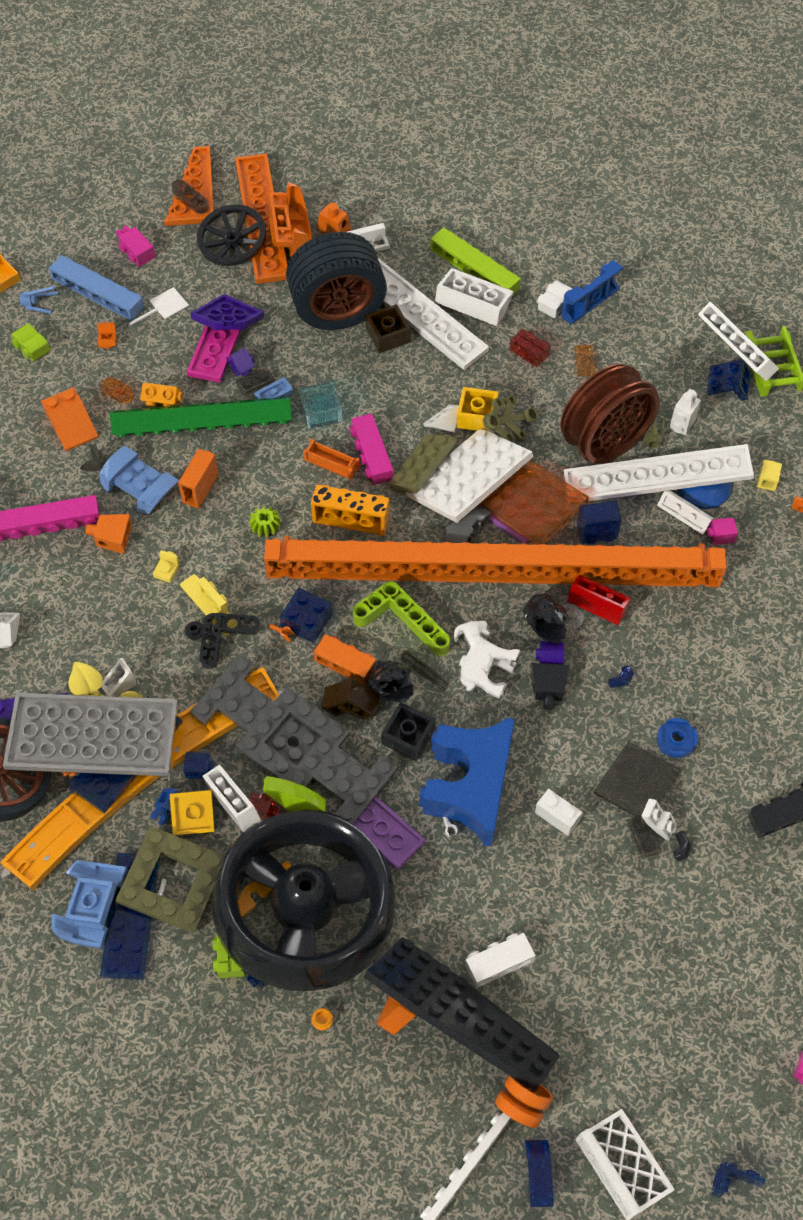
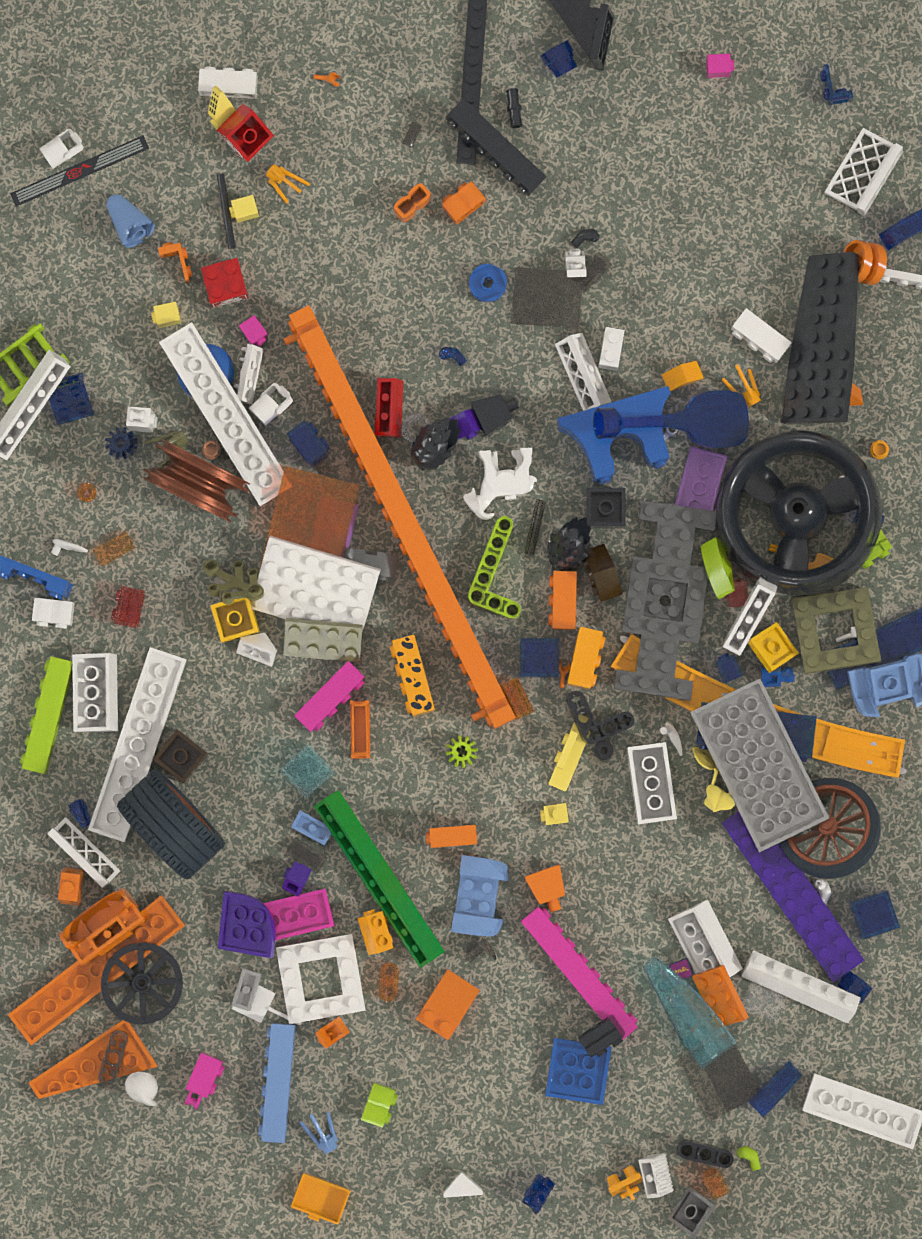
camera: 120 degrees left, 25 degrees up
(118, 679) = (688, 786): white slope -> none
(141, 648) = (651, 783): none -> white brick
(153, 203) = (142, 1088): none -> white piece
(167, 374) = (340, 947): none -> white plate
(170, 693) = (673, 735): none -> white bar
(179, 297) = (246, 989): none -> light grey plate
(281, 582) = (517, 698): none -> clear orange plate
(282, 646) = (585, 658): none -> light orange brick
(387, 253) = (80, 812): none -> clear blue cone
(440, 856) = (708, 419): none -> clear blue piece
(444, 918) = (752, 394): none -> light orange plant
(498, 868) = (682, 375): none -> light orange slope
(540, 778) = (586, 370): none -> white fence
(608, 327) = (65, 545): none -> white bar
(631, 455) = (211, 450): none -> nougat plate
(642, 356) = (82, 488): none -> clear orange plate
(649, 512) = (266, 408): none -> white piece
(670, 396) = (115, 447): none -> clear blue gear
(767, 752) = (463, 202): none -> orange brick
(778, 527) = (224, 282): none -> red brick
(787, 707) = (408, 205): none -> orange brick

